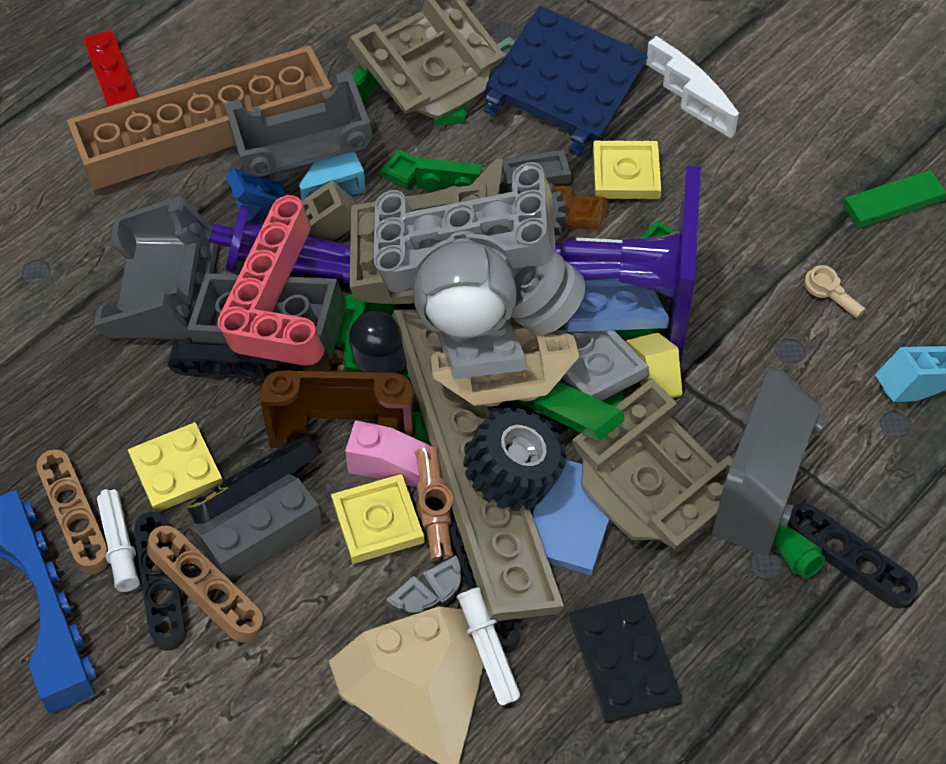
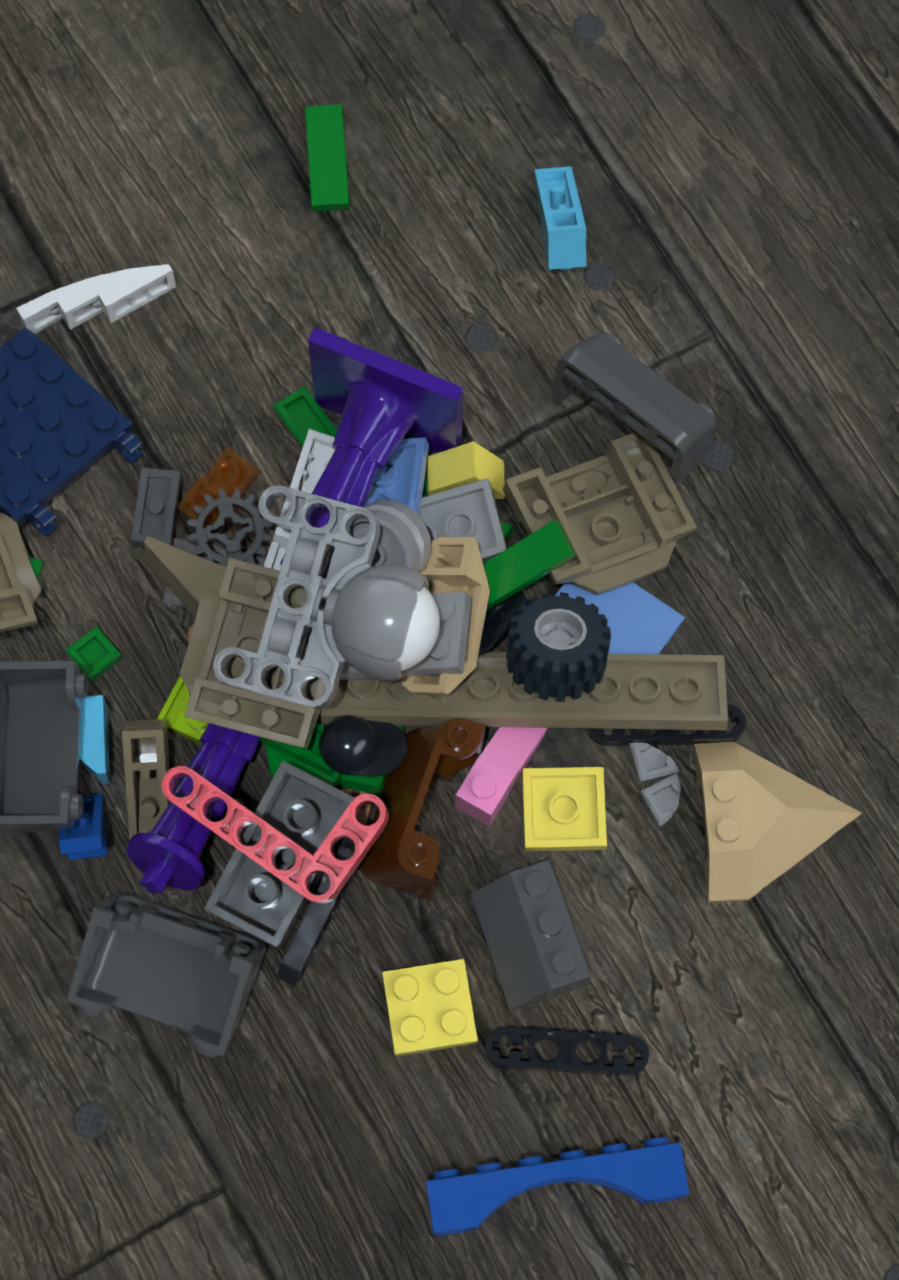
camera: 75 degrees left, 15 degrees up
(69, 512) = (451, 1122): medium nougat beam -> none
(120, 552) = (506, 1086): white axle -> none
(199, 586) = (590, 999): medium nougat beam -> none
(252, 479) = (483, 922): black beam -> none
(435, 522) = (588, 745): nougat pin -> none
(442, 174) = (127, 618): green plate -> none
(489, 646) = (734, 739): white axle -> none
(625, 658) = (783, 619): black plate -> none
(626, 169) = (190, 411): light yellow plate -> none
(798, 552) = (730, 418): green cone -> none
(824, 283) = (415, 271): tan plate -> none
(855, 550) = (740, 380): black beam -> none

